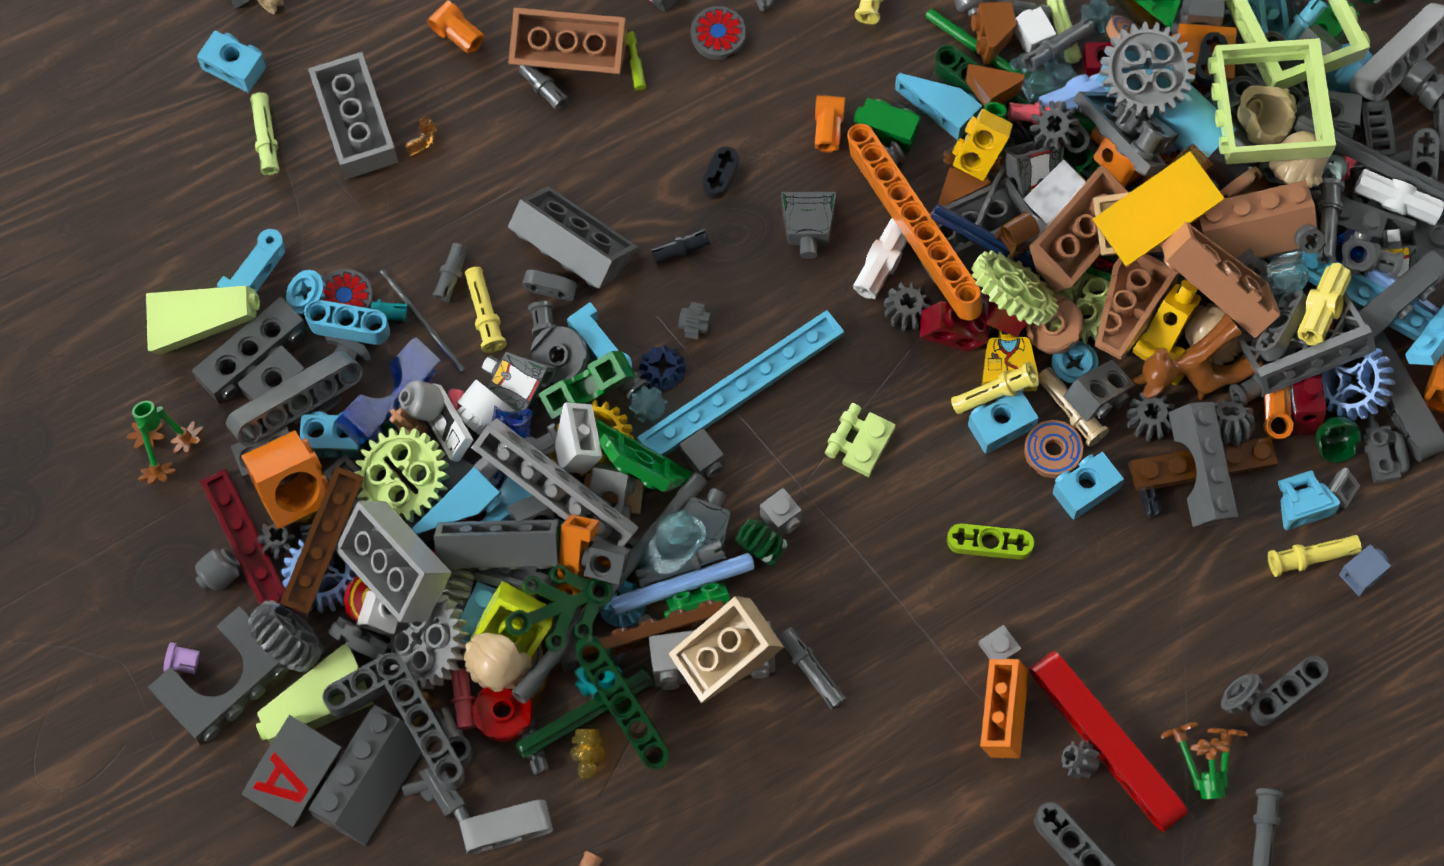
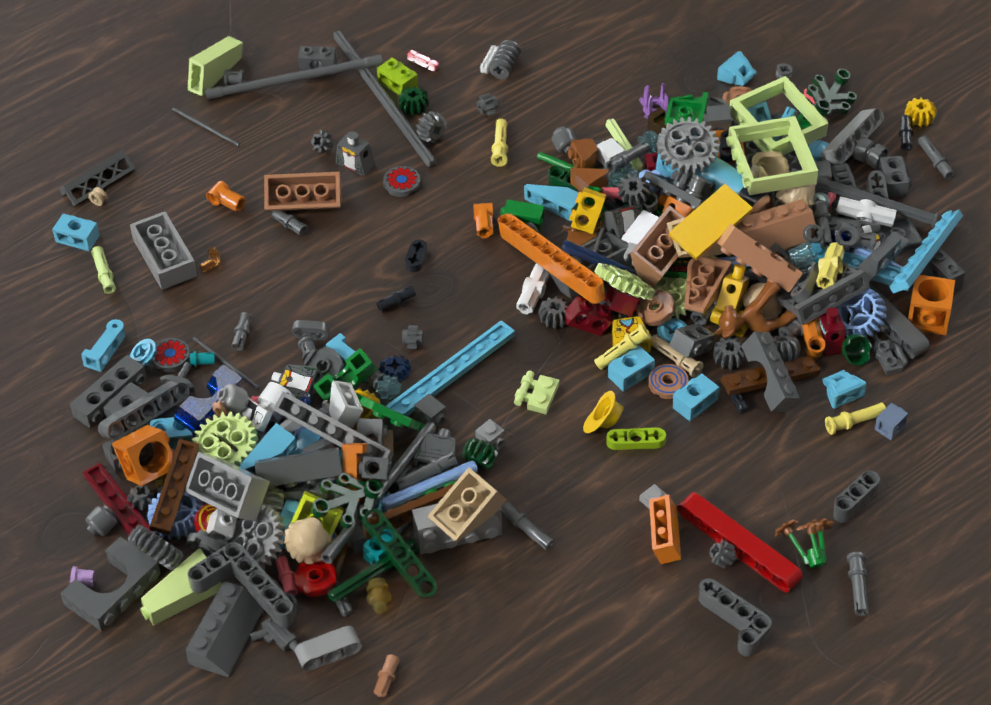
camera: 10 degrees left, 20 degrees down
(147, 430) = (43, 430): plant -> none
(192, 315) = (69, 371): yellowish green slope -> none
(291, 770) = (170, 630): dark grey slope -> none
(336, 313) = (174, 364): medium azure beam -> none
(487, 321) = (259, 334): light yellow pin -> none
(571, 236) = (320, 301): dark grey slope -> none
(635, 63) = (350, 206): lime piece -> none
(674, 542) = (420, 456): clear light blue piece -> none
(808, 219) = (479, 272): dark grey torso -> none
(949, 496) = (604, 414): none -> yellow piece
(1018, 234) = (620, 249): reddish brown piece -> none
(1241, 693) = (824, 500): dark grey gear -> none
(1344, 487) = (868, 376): light grey slope -> none

